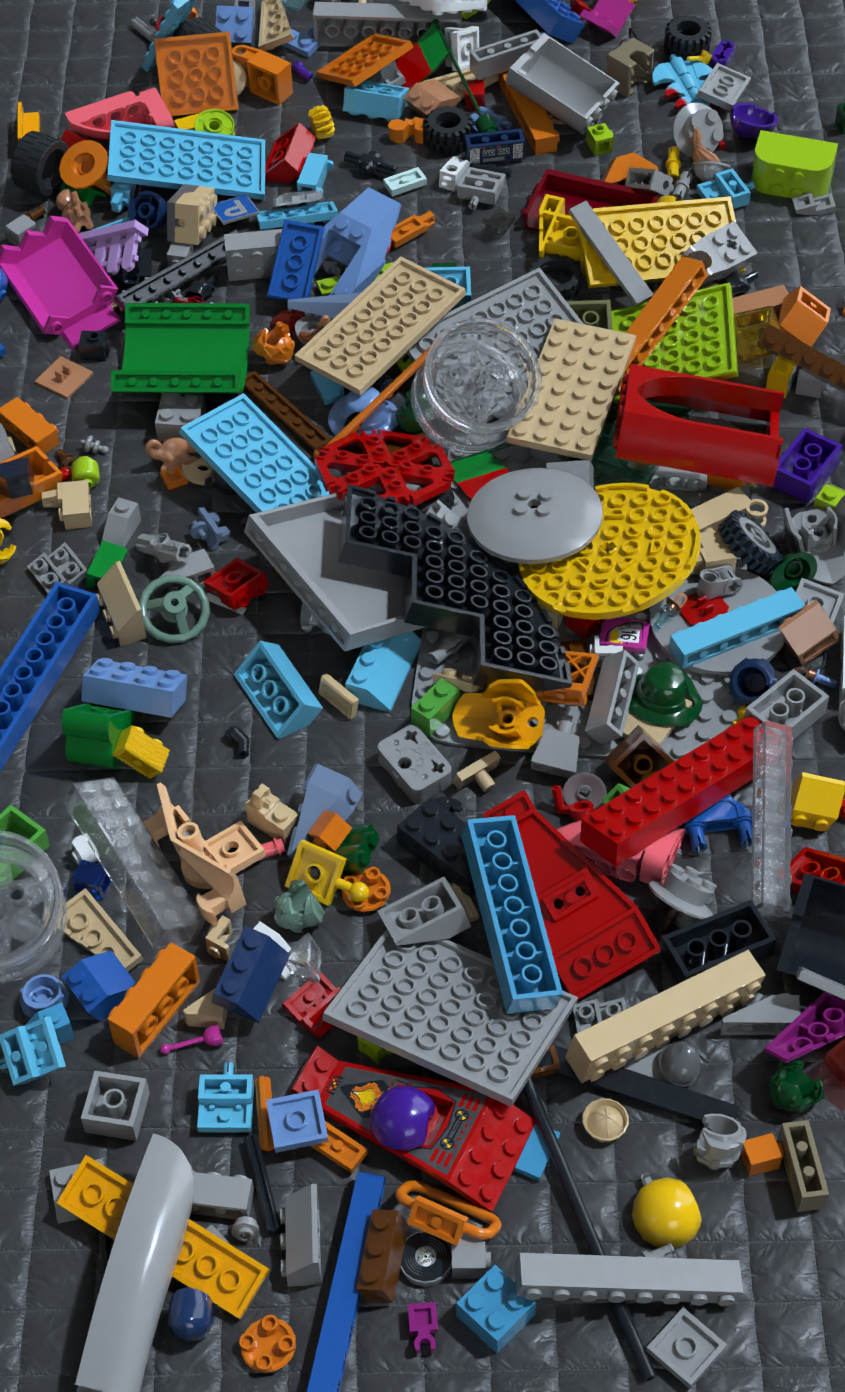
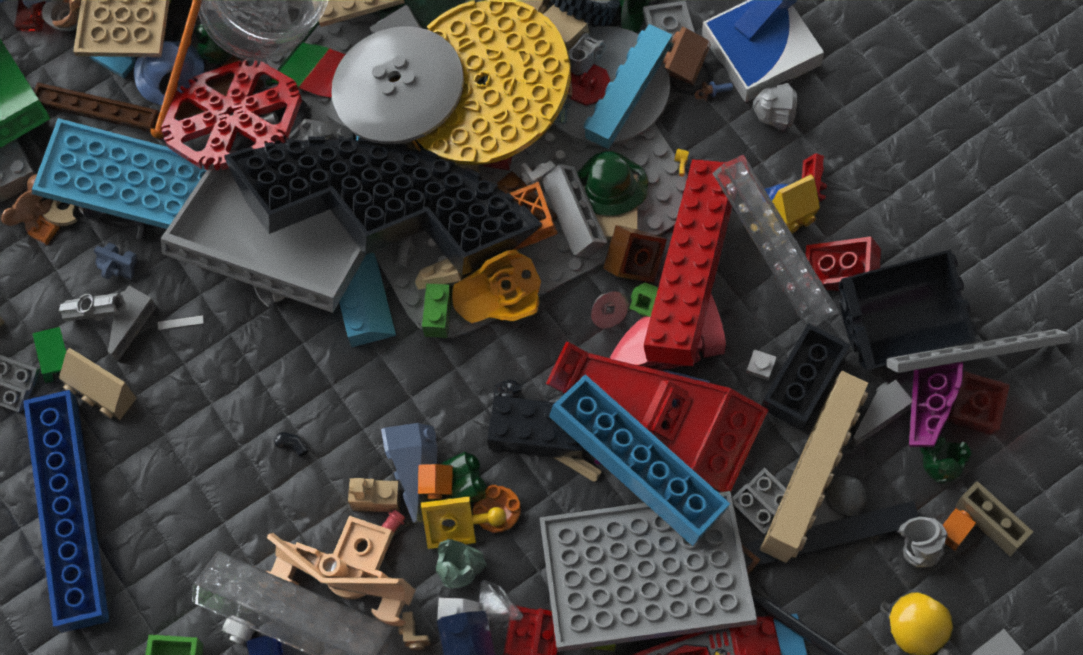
camera: 30 degrees left, 15 degrees up
(94, 732) = (169, 515): green brick -> none
(121, 522) = (32, 306): light grey slope -> none
(134, 687) = (169, 455): medium blue brick -> none
(141, 751) = (220, 510): yellow brick -> none
(174, 608) = (145, 357): sand green piece -> none
(237, 583) = (180, 299): red plate -> none
(275, 346) = (39, 47): orange helmet -> none
(277, 690) = (289, 376): medium azure slope -> none
(338, 696) = (345, 350): tan tile -> none
(414, 764) = (455, 364): light grey axle -> none
(425, 915) = (564, 503): light grey slope -> none
(479, 772) = (512, 346): tan tile -> none
(557, 751) = (563, 286): light grey torso -> none
(576, 810) = (615, 327): red plate -> none
(605, 1120) = (823, 579): tan hat -> none
(625, 632) = (546, 148): slope -> none
(684, 893) = (753, 351): light grey piece -> none
(721, 816) = (732, 257): blue connector -> none
(750, 680) = (672, 127): dark blue helmet -> none
(790, 702) = (714, 131): light grey brick -> none

